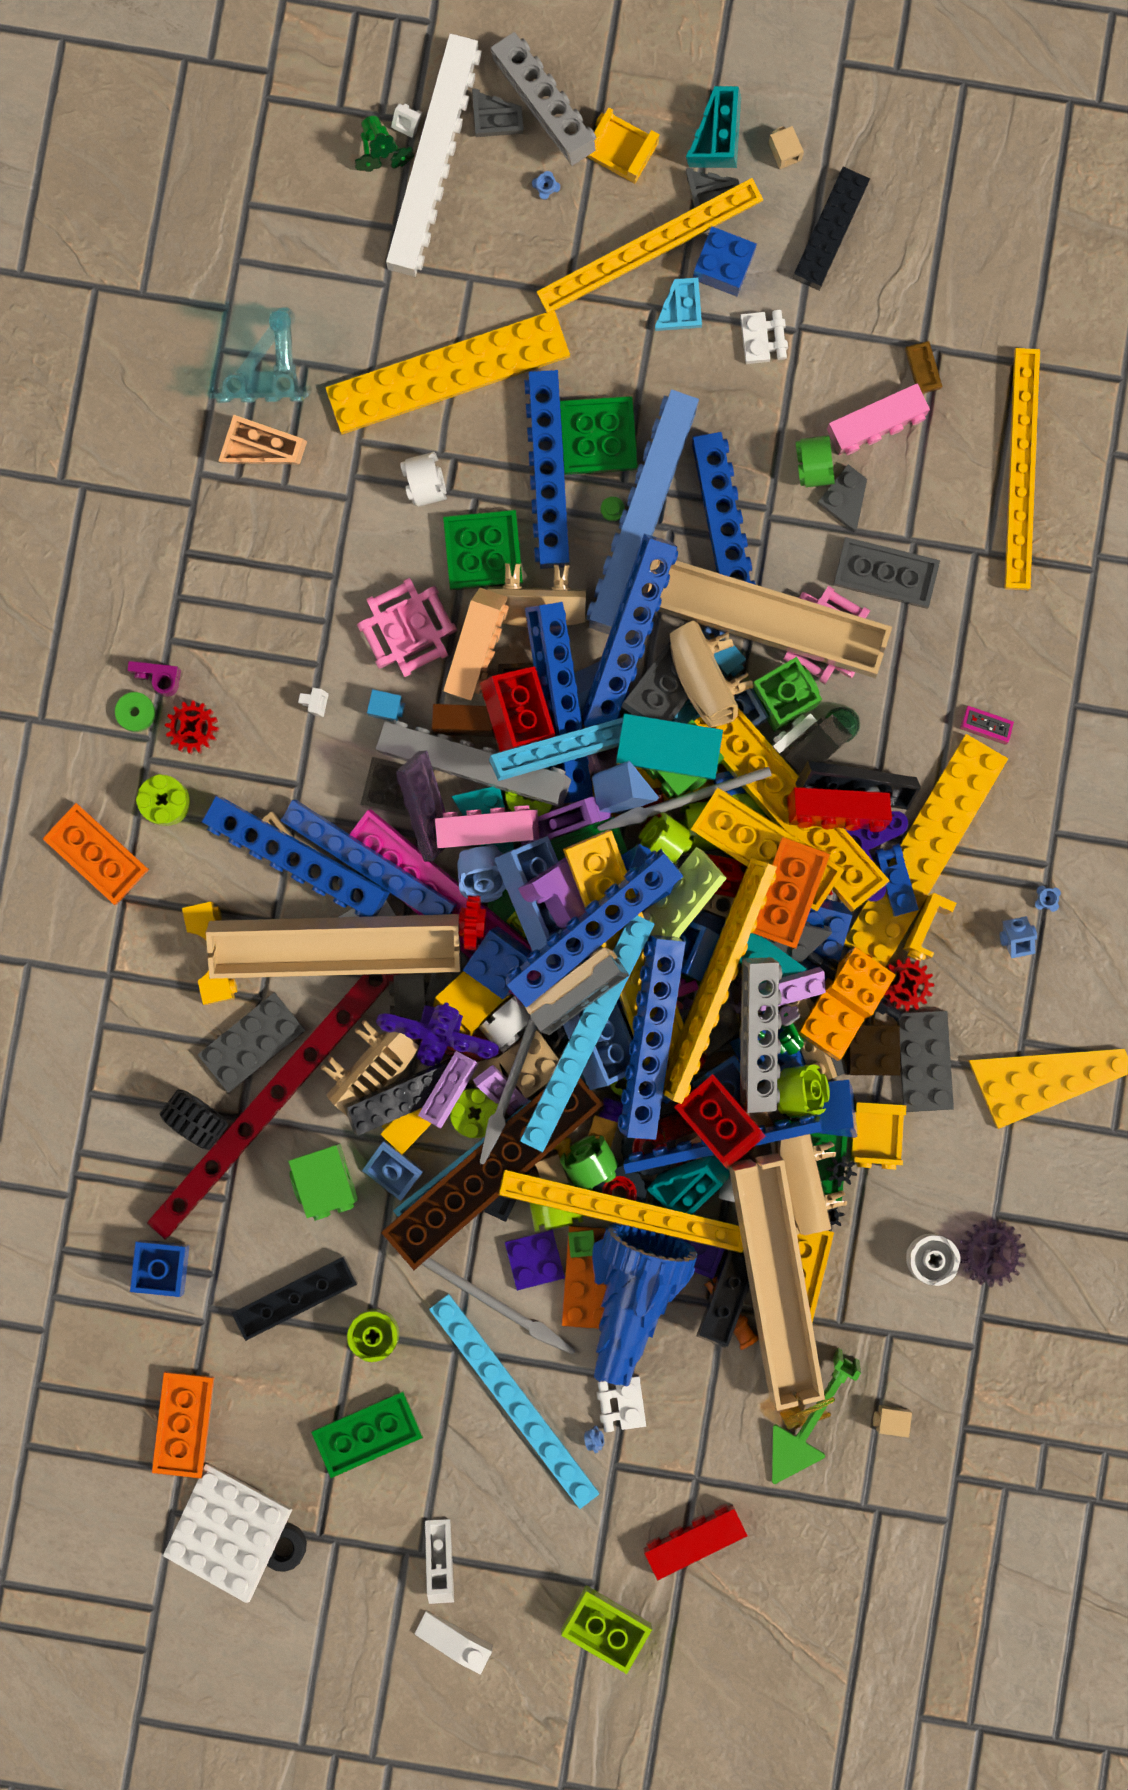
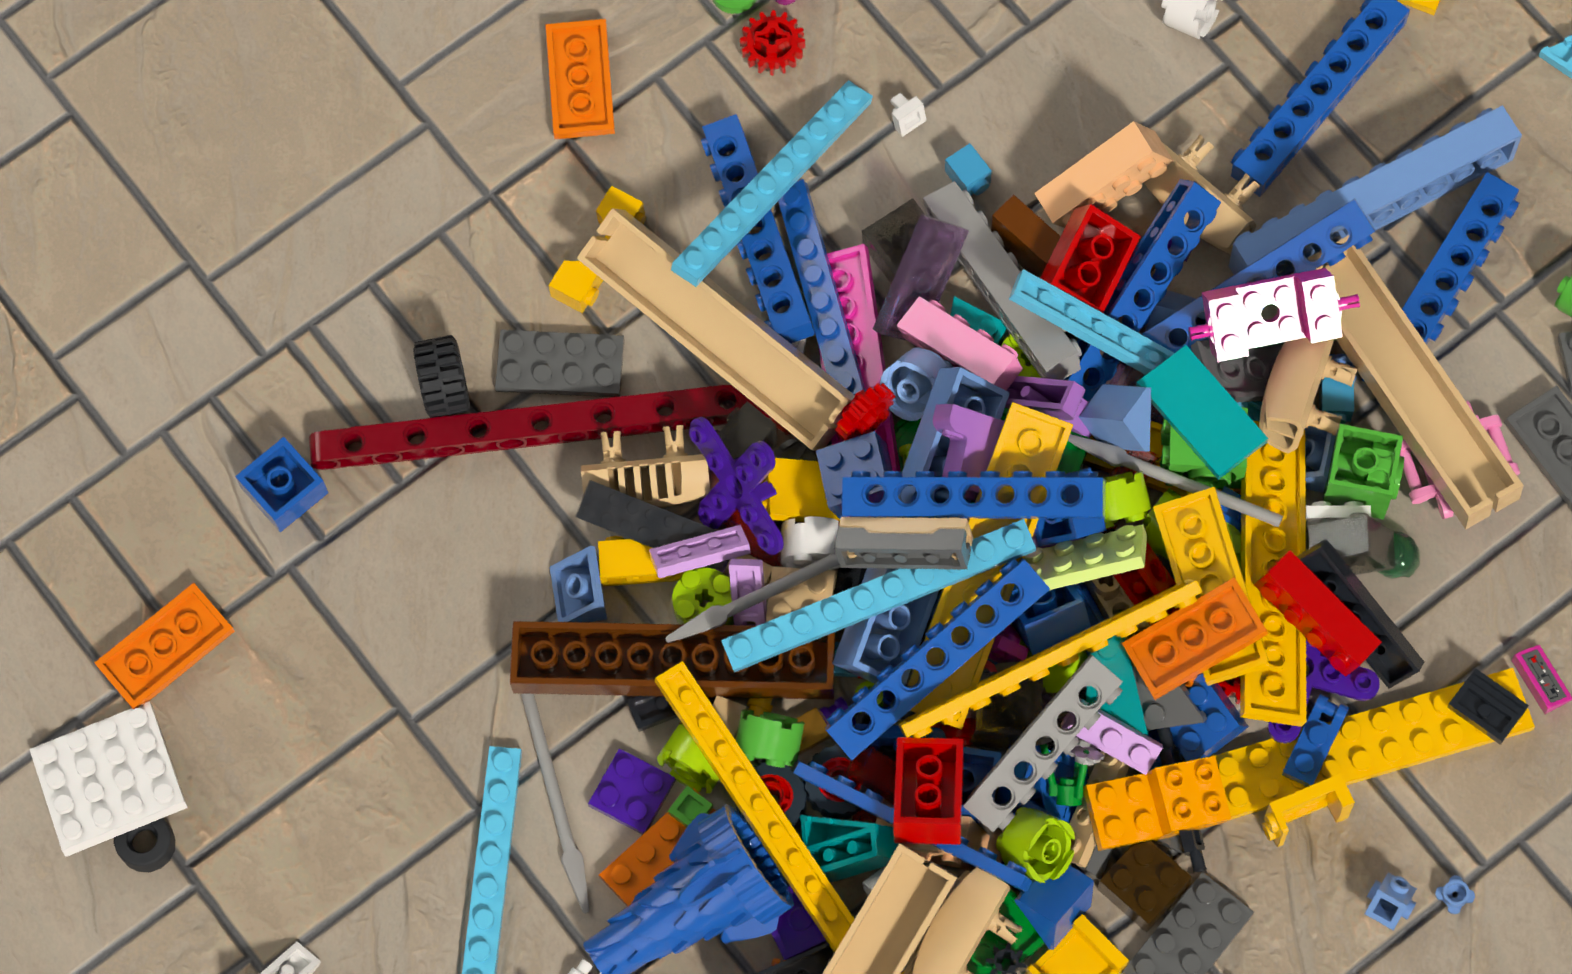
camera: 50 degrees right, 15 degrees down
(175, 794) = (680, 67): lime brick -> none
(281, 825) = (771, 184): none -> medium azure plate
(294, 1298) = (376, 624): black piece -> none
(323, 1182) = (504, 537): bright green brick -> none
(364, 1346) = (415, 702): lime brick -> none
(367, 1434) = (321, 809): green plate -> none
(407, 627) = (1053, 118): bright pink brick -> none
(480, 547) = (1191, 103): green plate -> none
(598, 435) = (1396, 101): green plate -> none
(612, 508) = (1347, 171): bright green plate -> none
(672, 627) = (1304, 304): none -> brick
(910, 995) = (1247, 856): red gear -> none
(975, 773) = (1487, 706): none -> black plate

